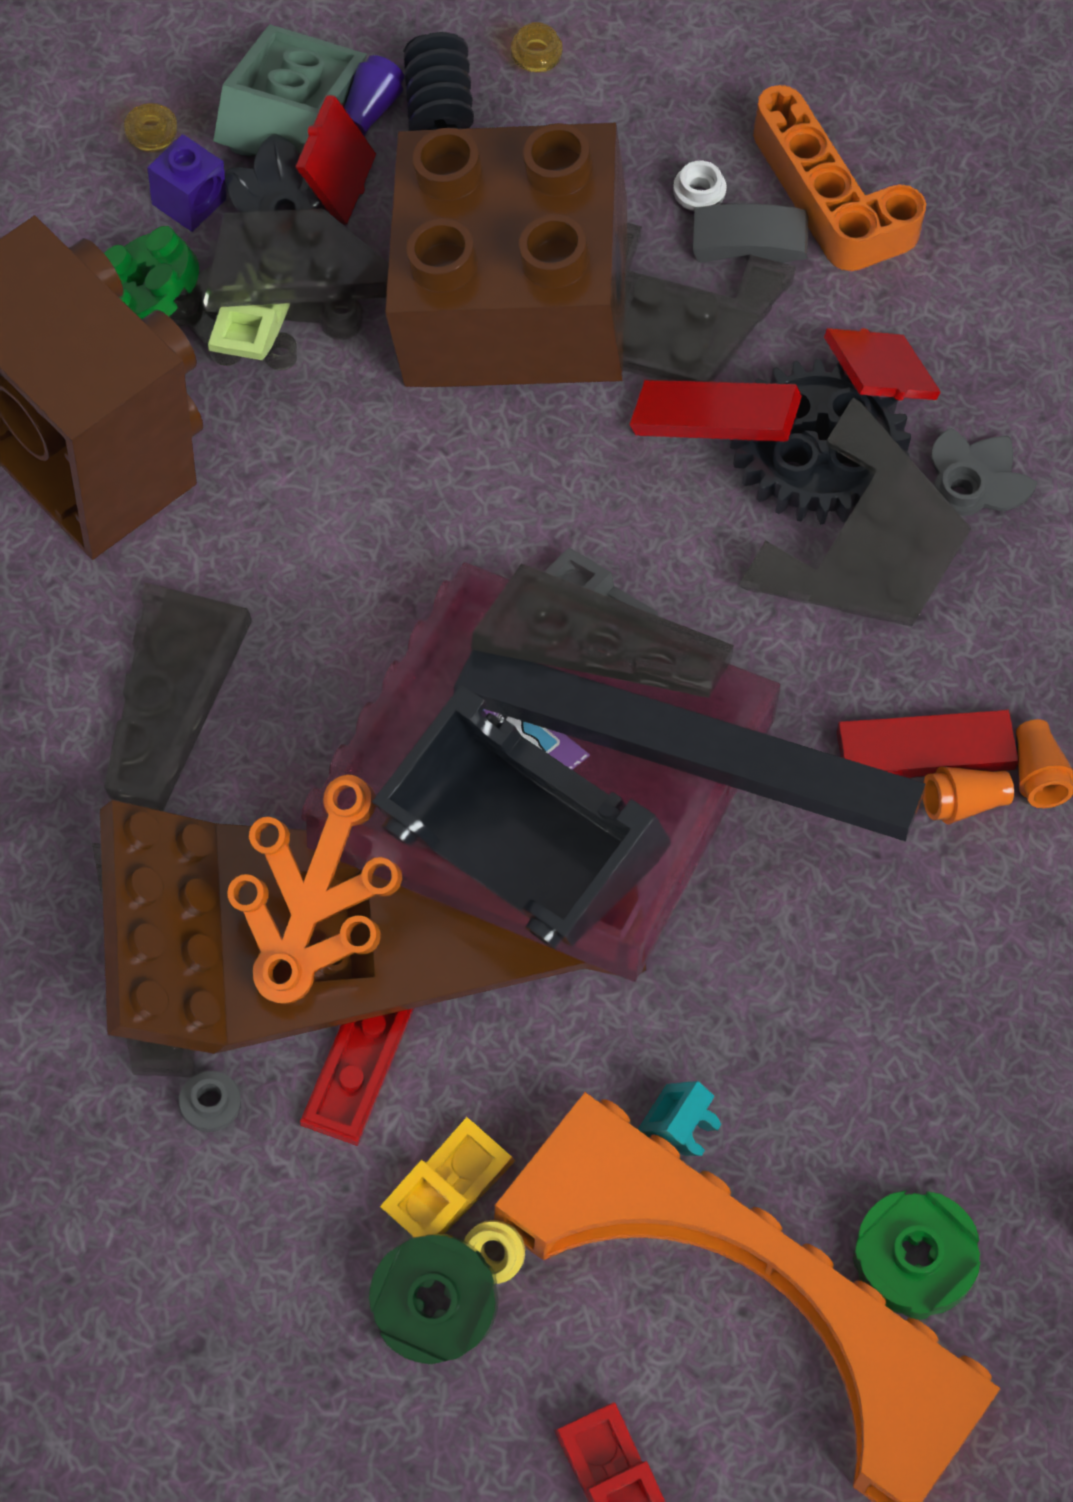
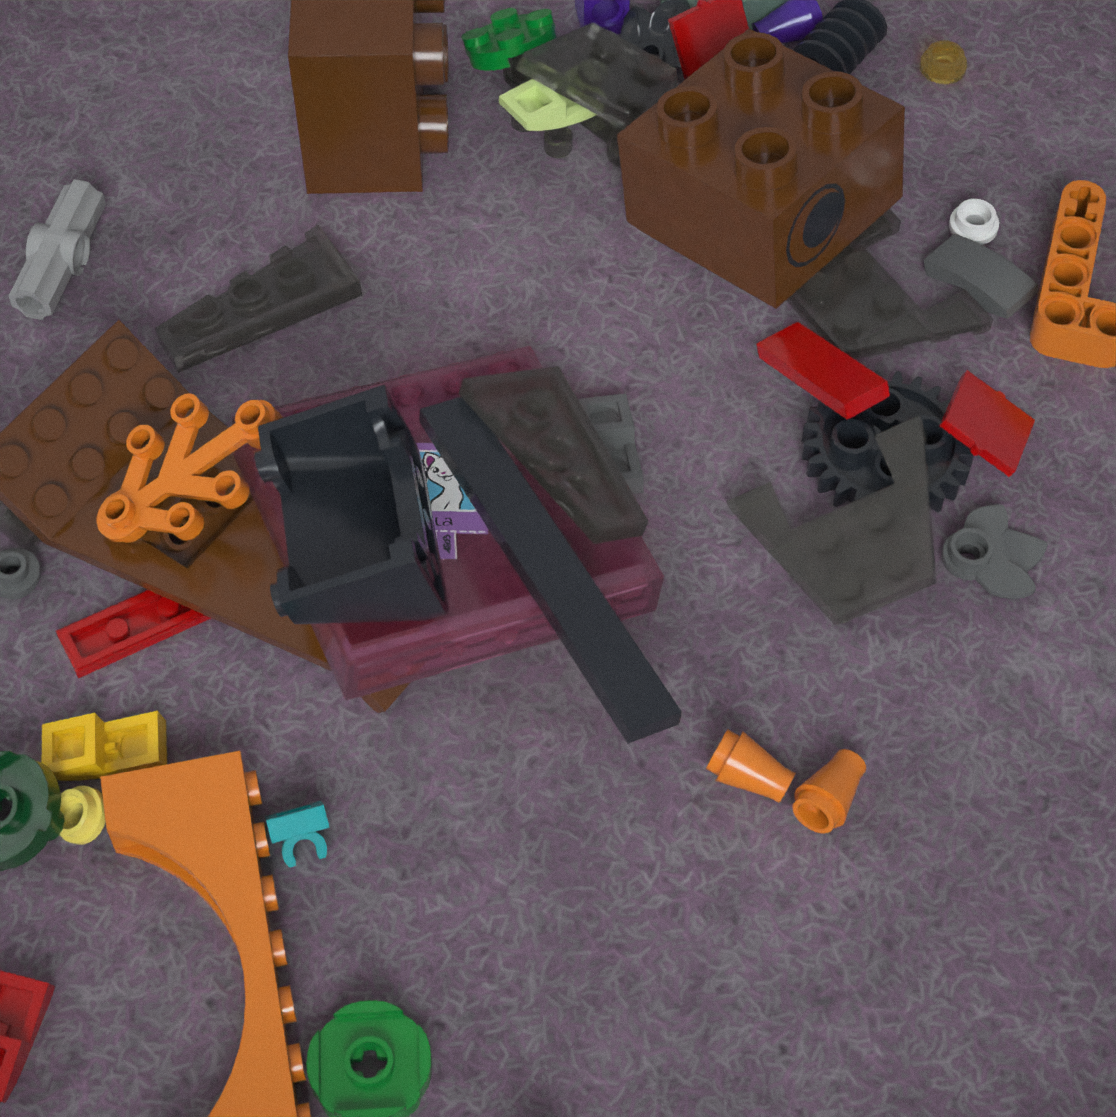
camera: 45 degrees right, 5 degrees down
(925, 743) = (747, 705): red tile -> none

